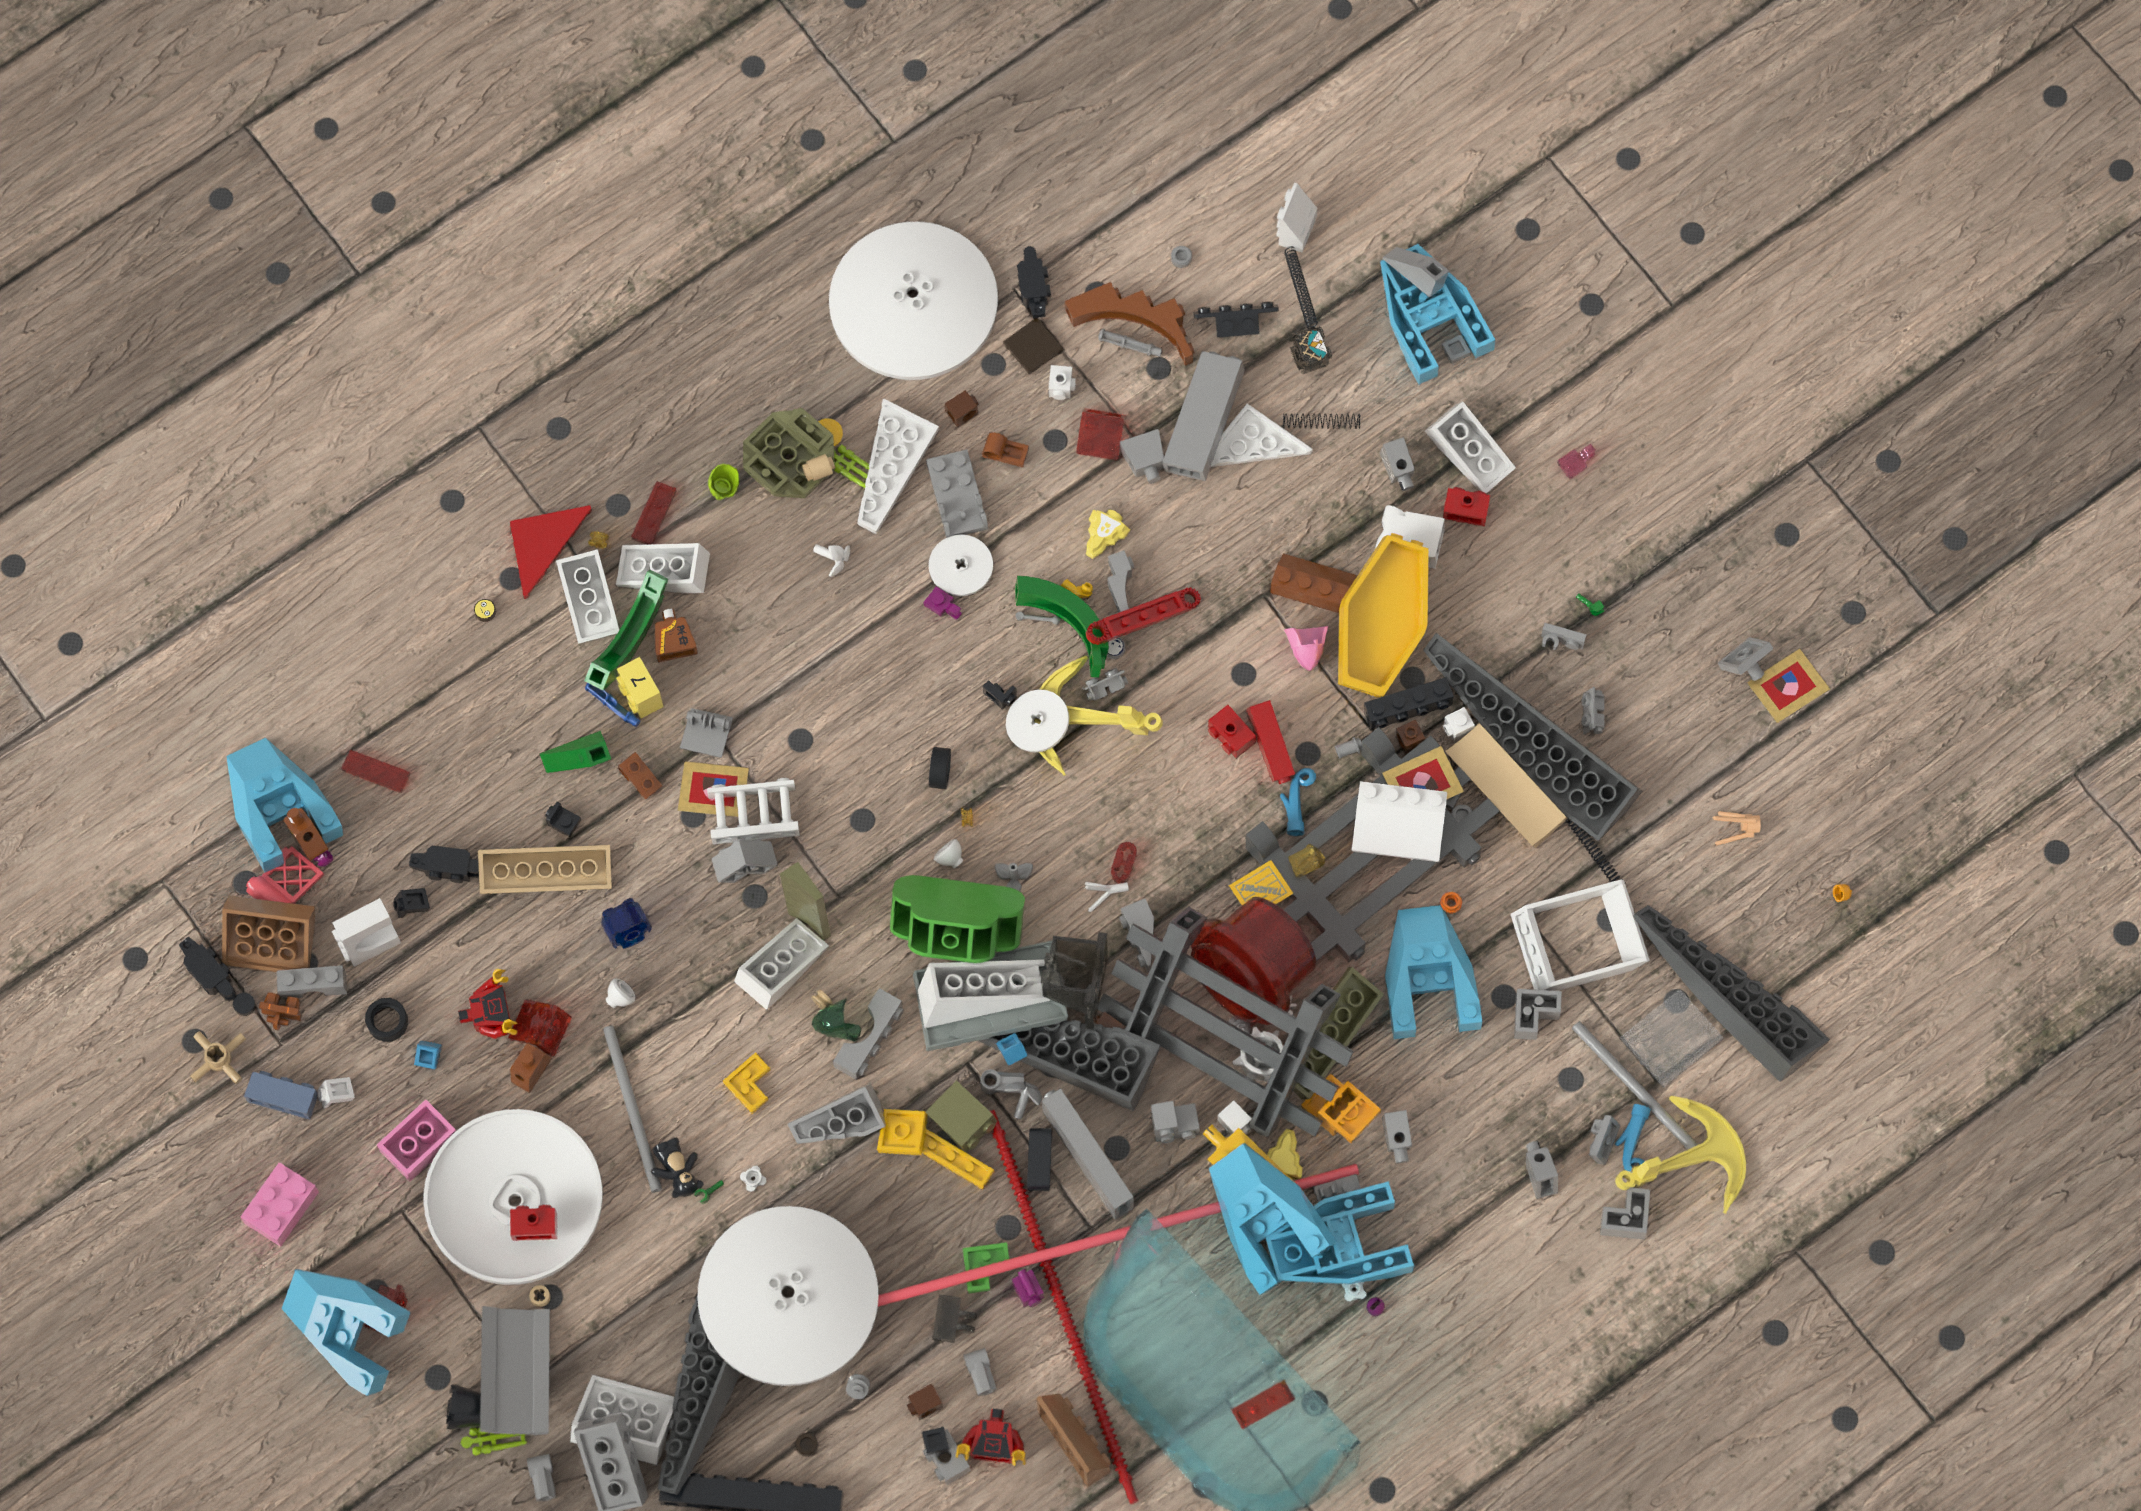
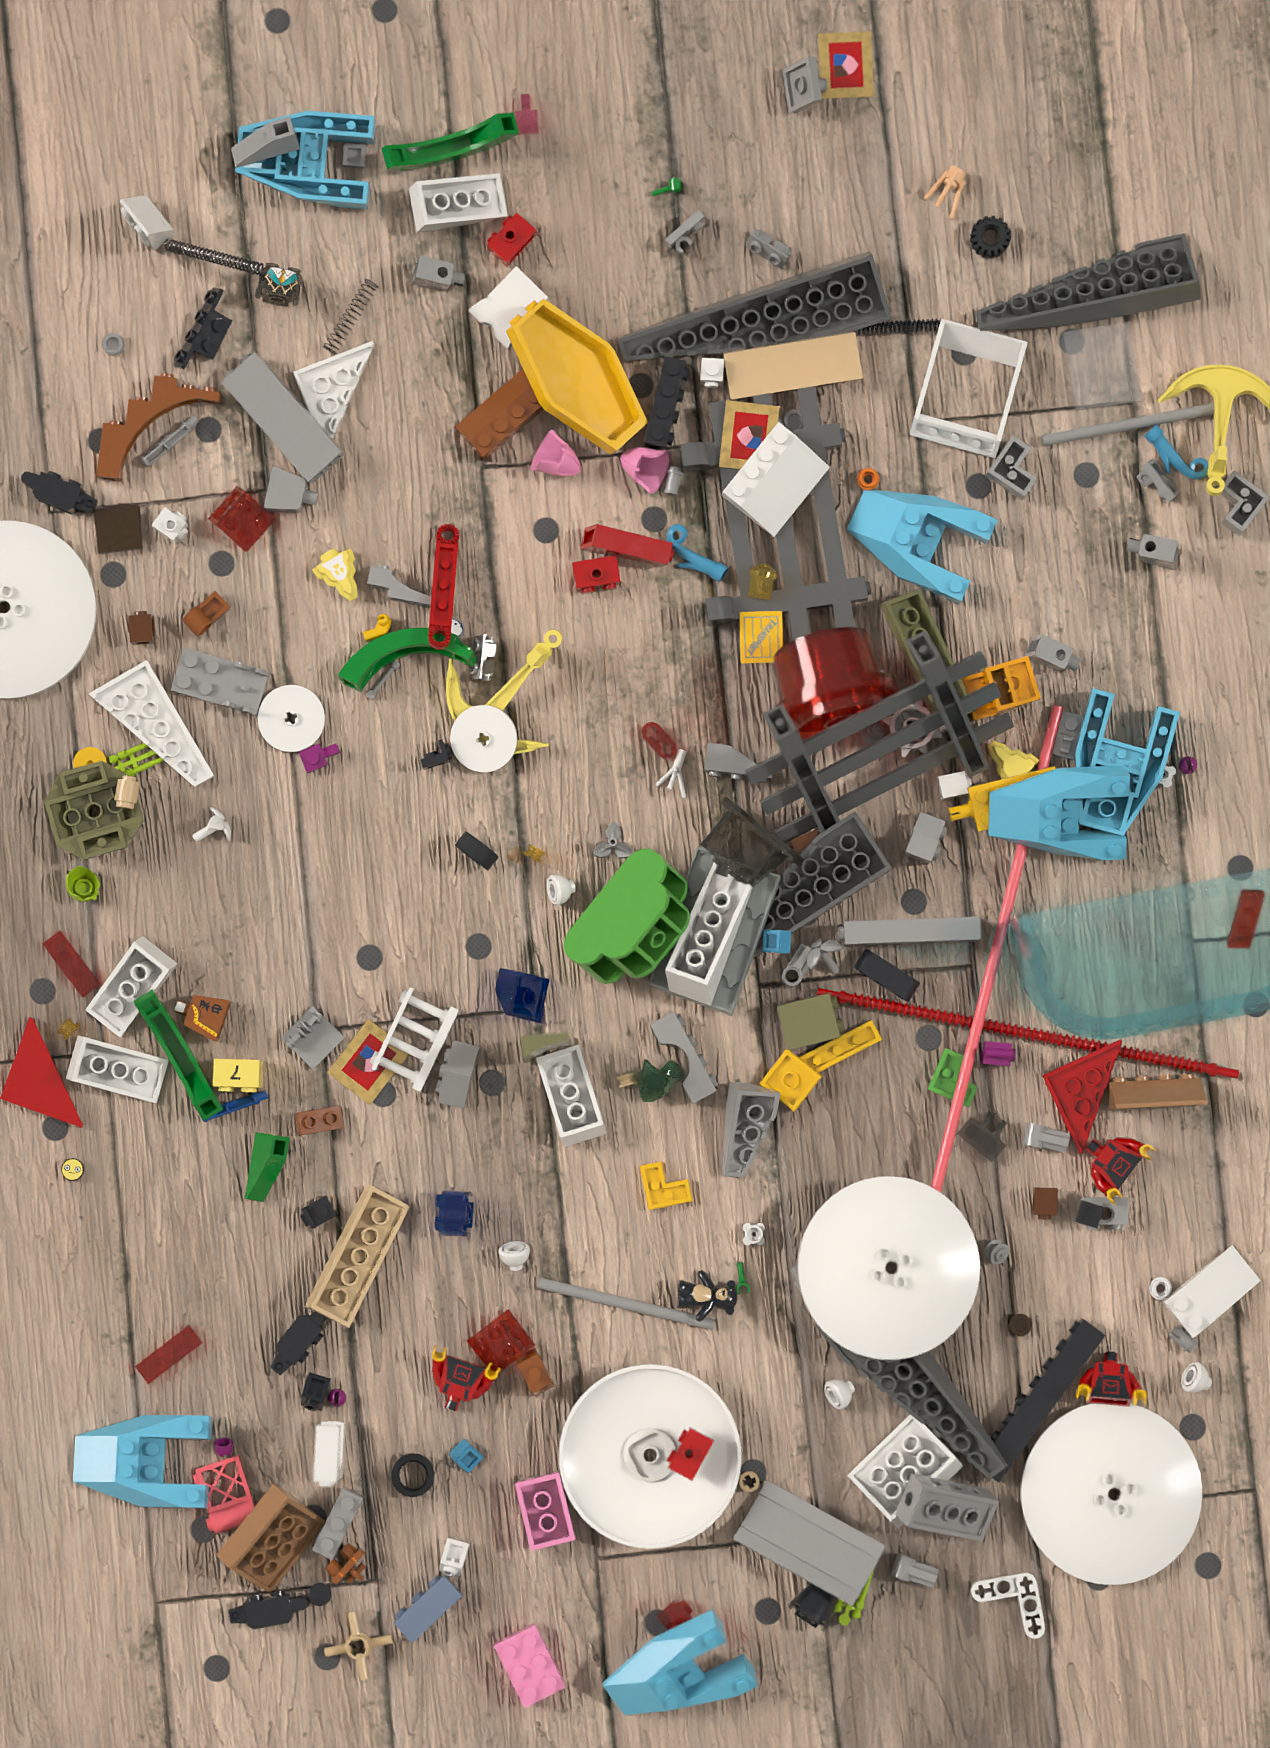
camera: 60 degrees left, 15 degrees up
(299, 824) = (189, 1452): dark orange torso -> none
(419, 926) = (342, 1397): none -> magenta hinge
(659, 1325) = (839, 1393): none -> white brick
(842, 874) = (521, 994): none -> clear blue slope
(1040, 1373) = (1080, 1089): none -> red tile
(1346, 720) = (646, 466): none -> bright pink helmet
(1409, 736) = (697, 421): reddish brown brick -> none
(1506, 413) = (452, 146): none -> green arch
(1720, 869) = (990, 250): none -> black tyre
(1841, 889) = (1062, 144): light orange hinge -> none

